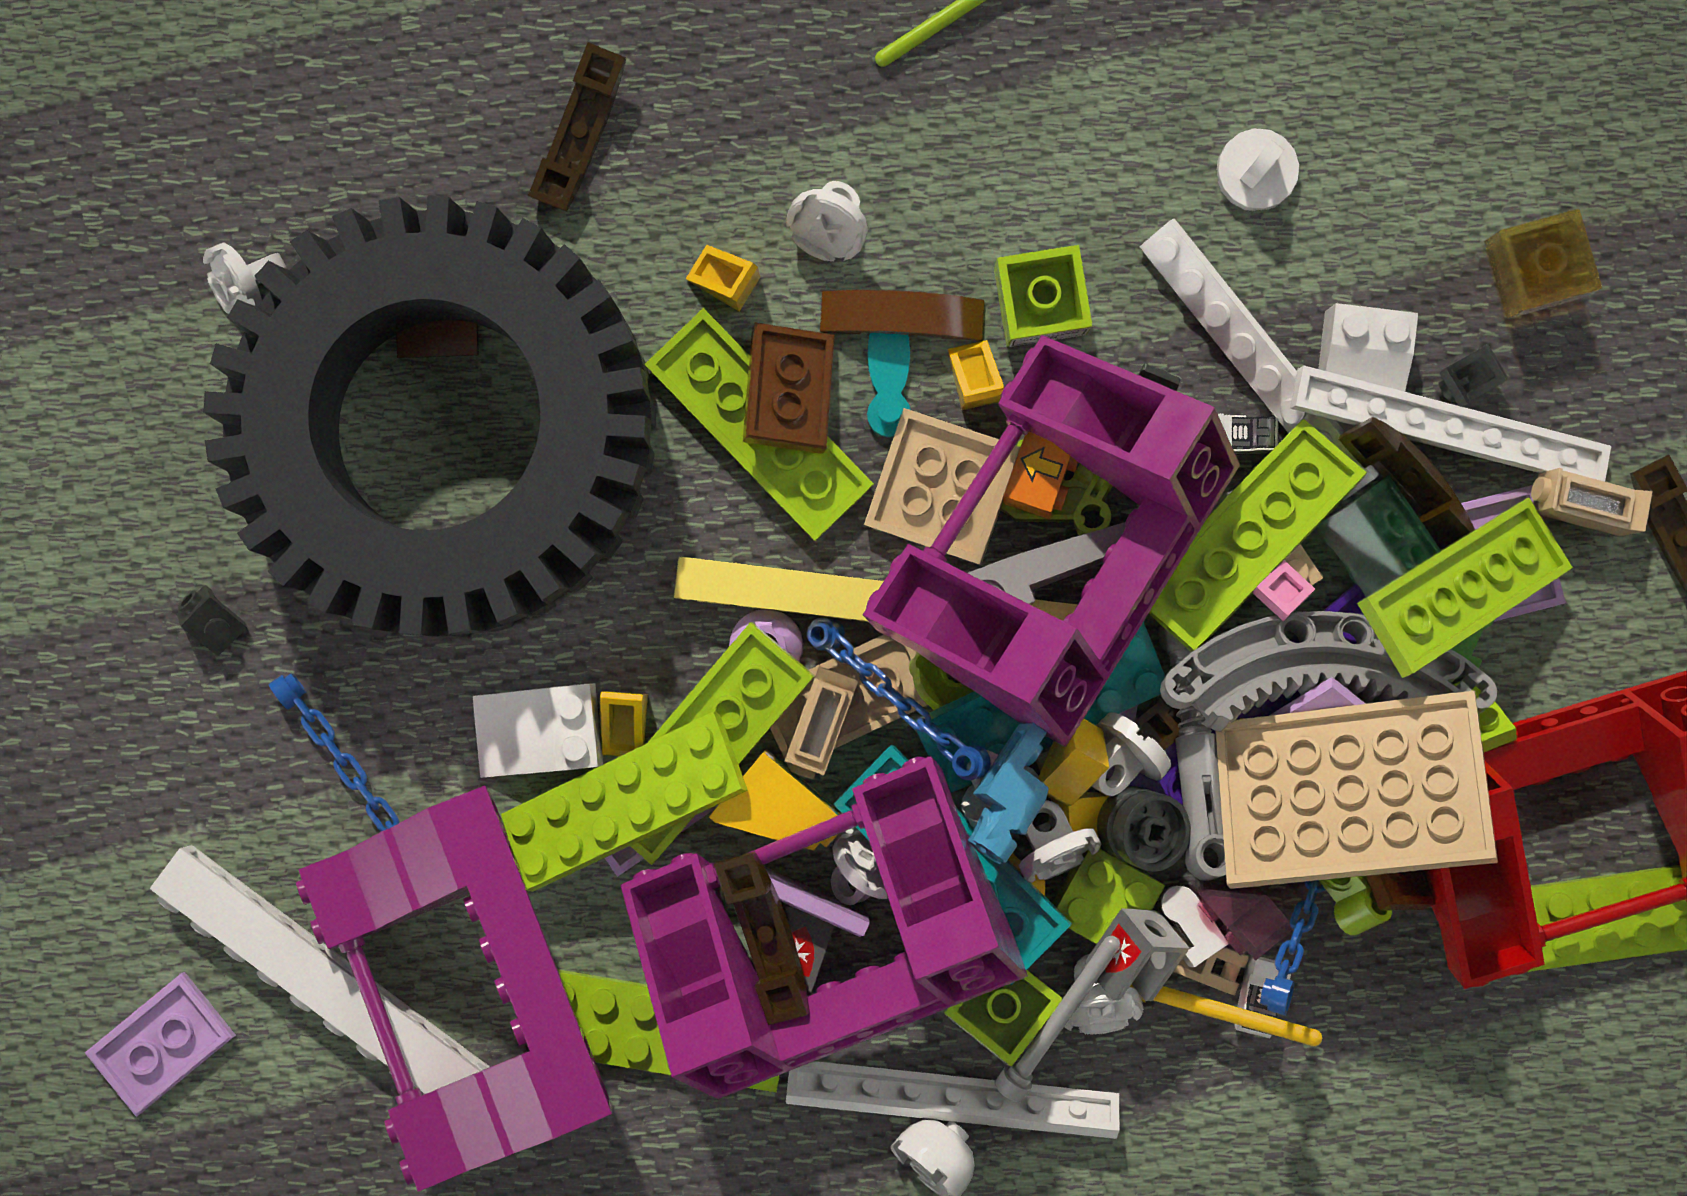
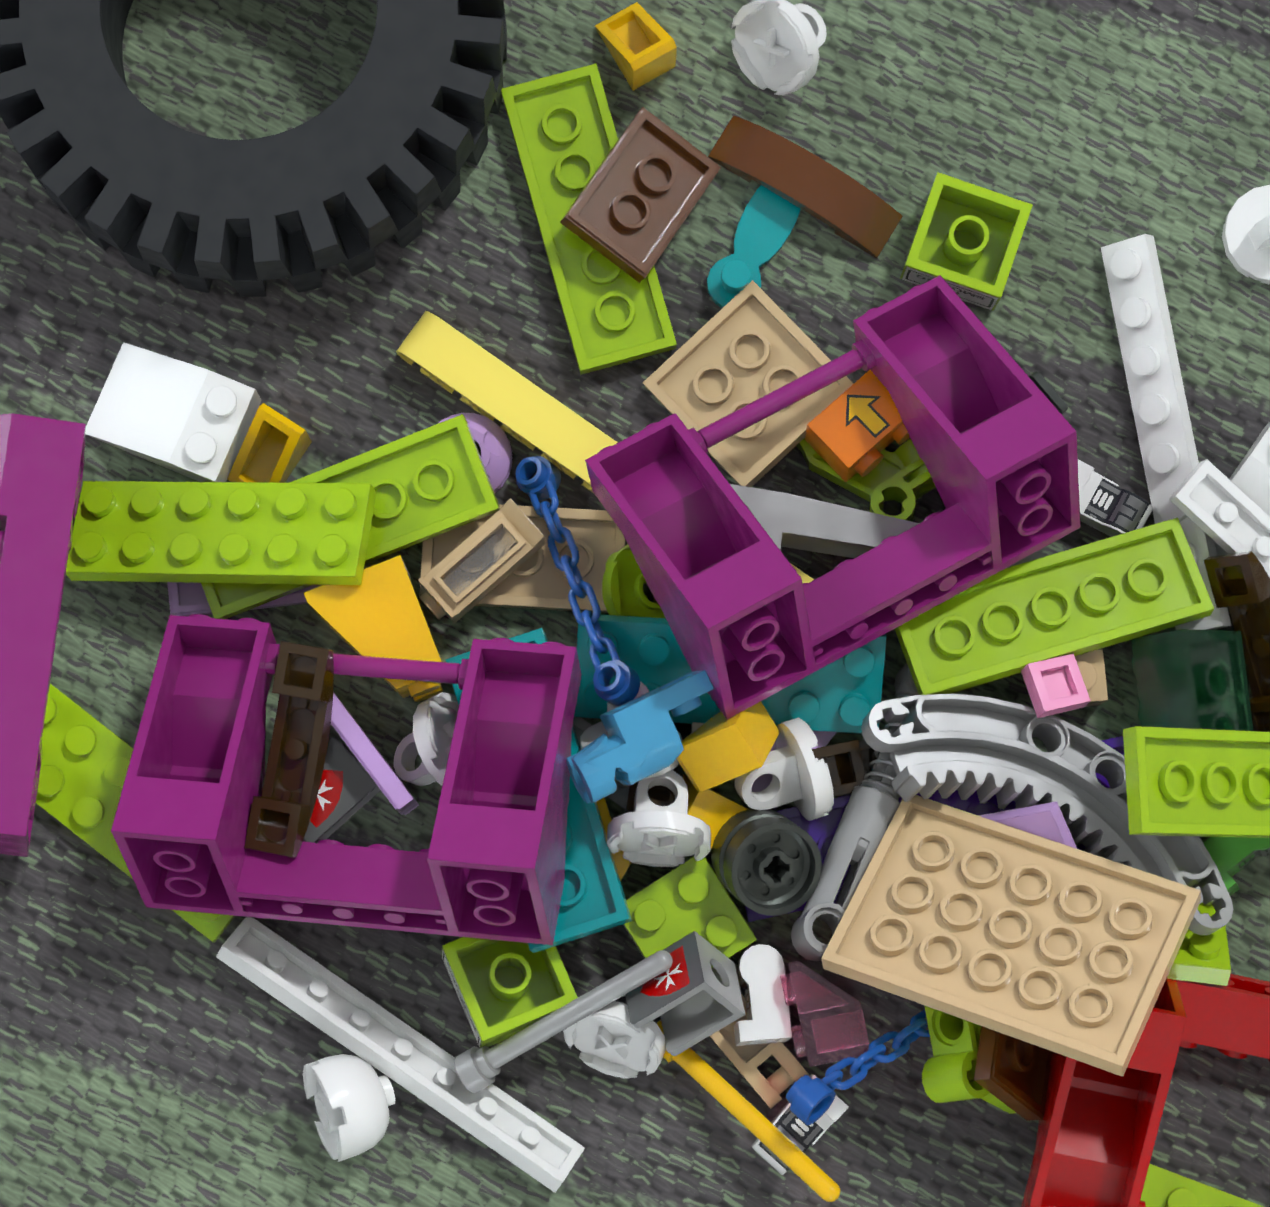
camera: 25 degrees right, 5 degrees down
(975, 375) = (848, 288): yellow slope -> none

